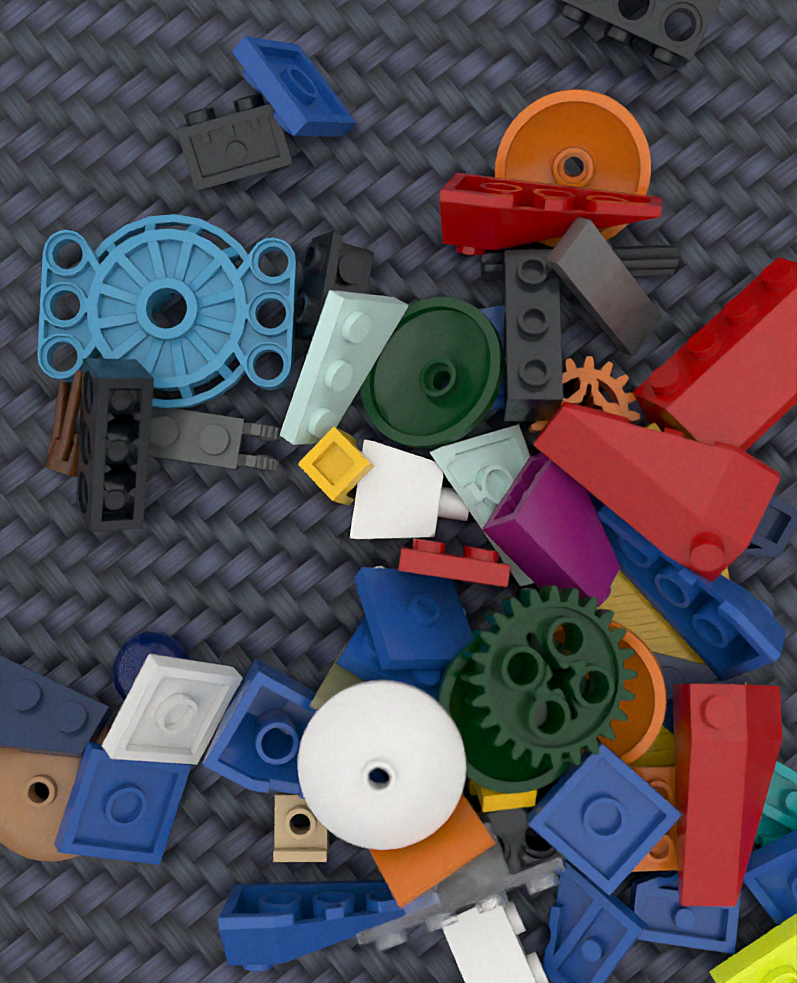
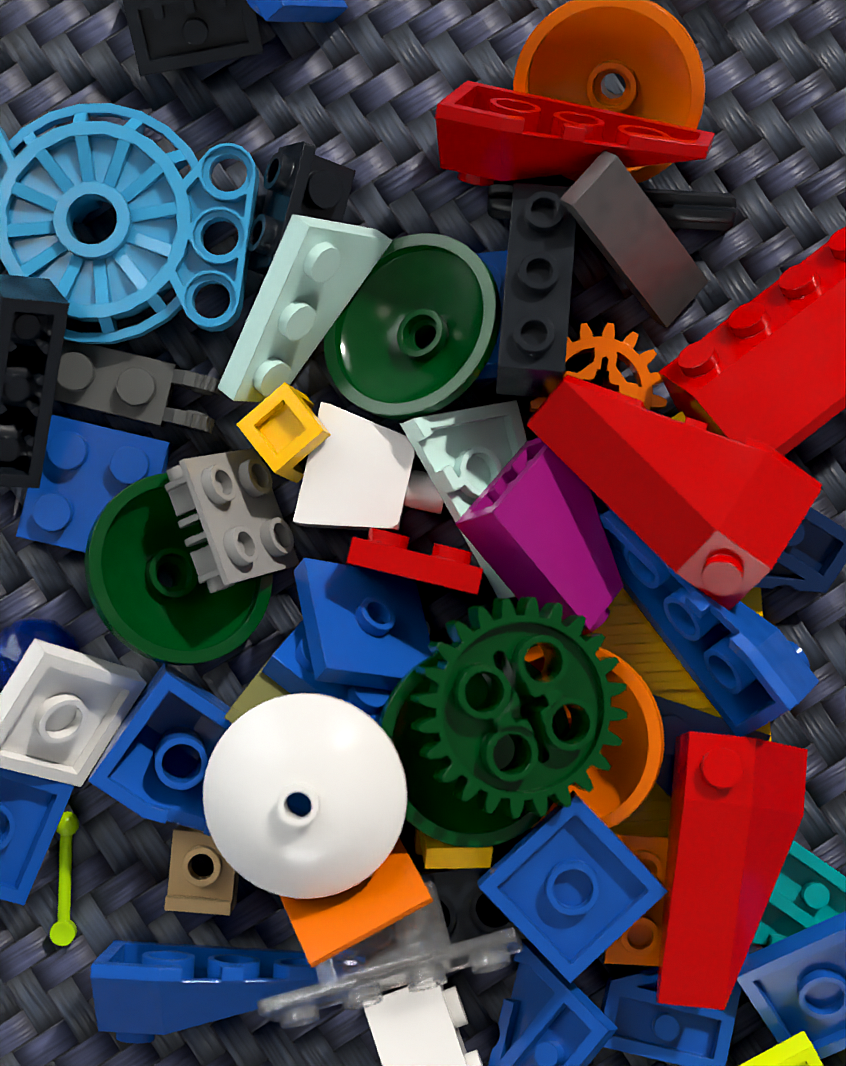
camera: 10 degrees right, 0 degrees up
(189, 525) = (80, 475): none -> blue plate
(193, 879) = (64, 929): none -> lime hinge
(290, 579) = (159, 622): none -> dark green dish
(304, 537) = (236, 514): none -> light grey hinge

